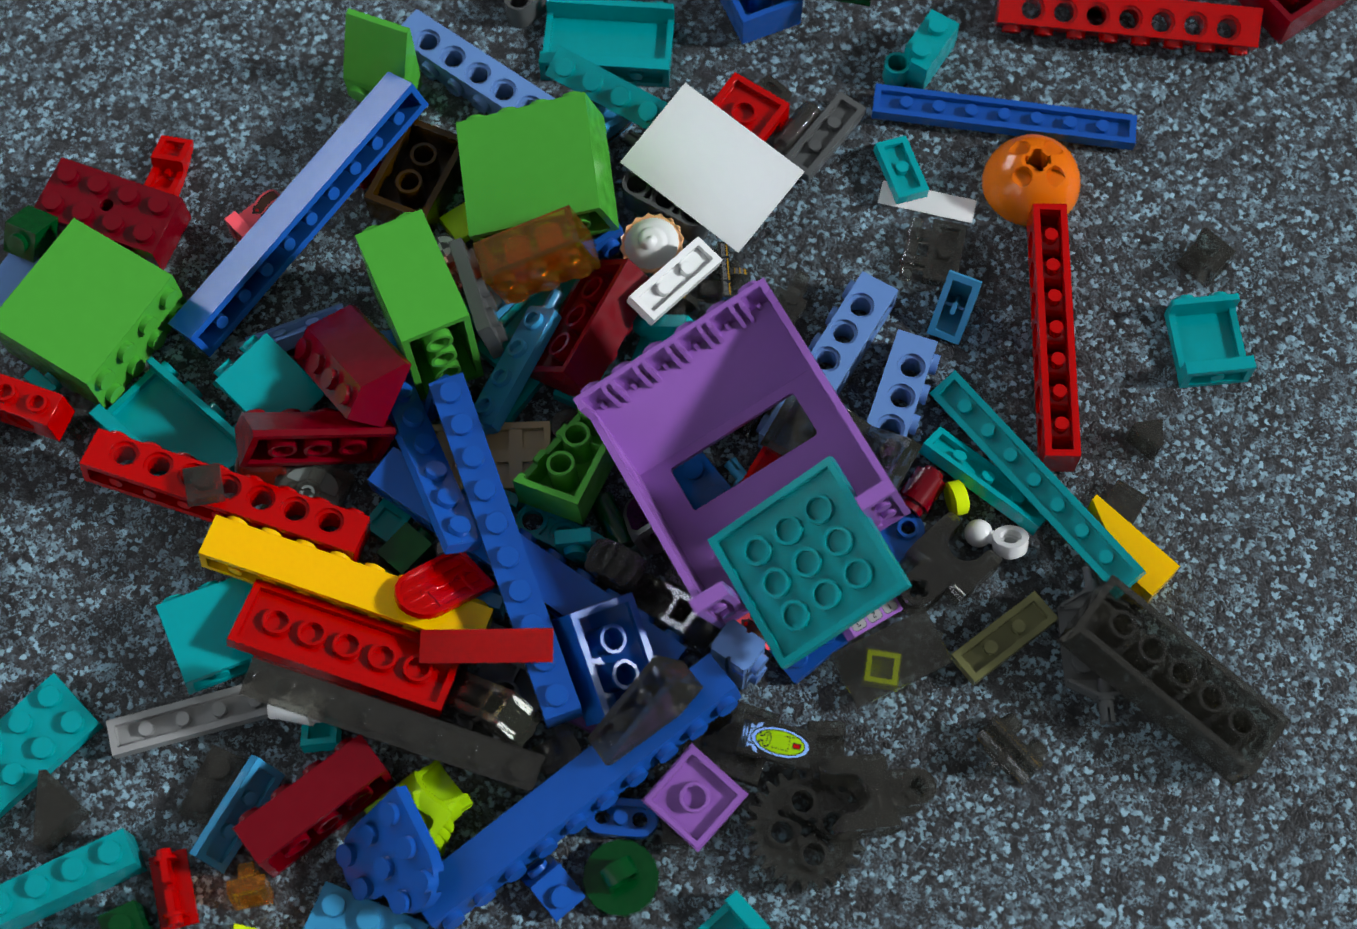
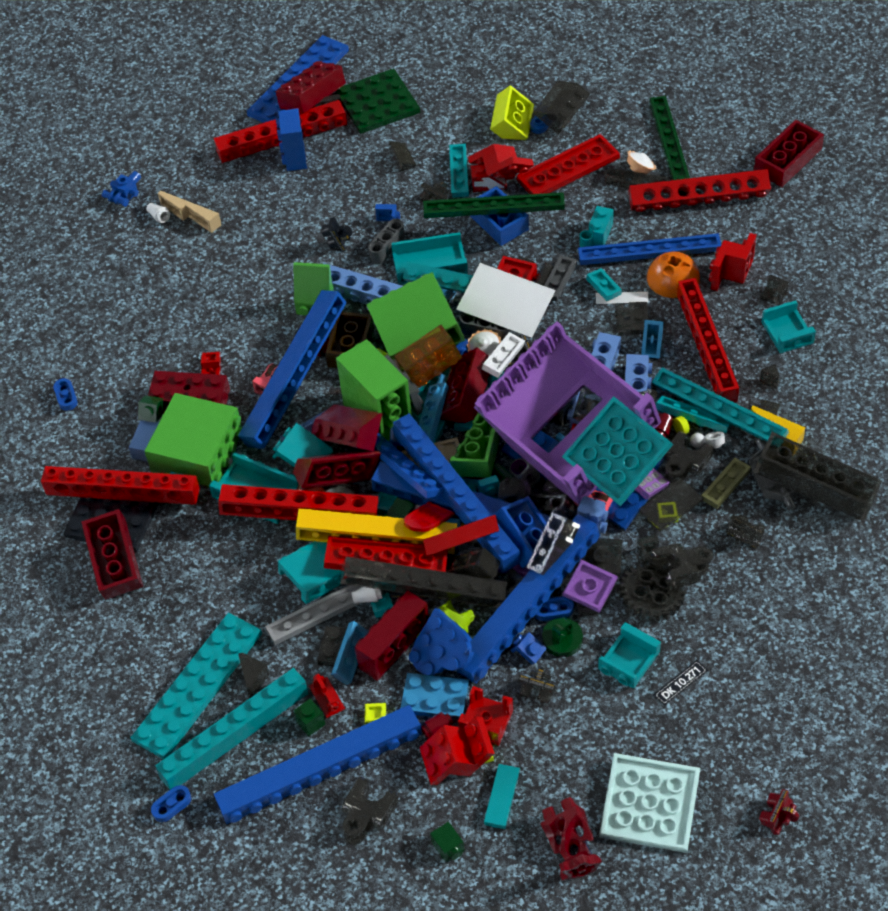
camera: 10 degrees left, 15 degrees down
(203, 485) = (287, 497): clear smoke plate -> none
(249, 889) = (368, 685): clear orange tile -> none
(776, 743) = (624, 550): tile -> none
(1144, 183) = (732, 261): none -> red bracket

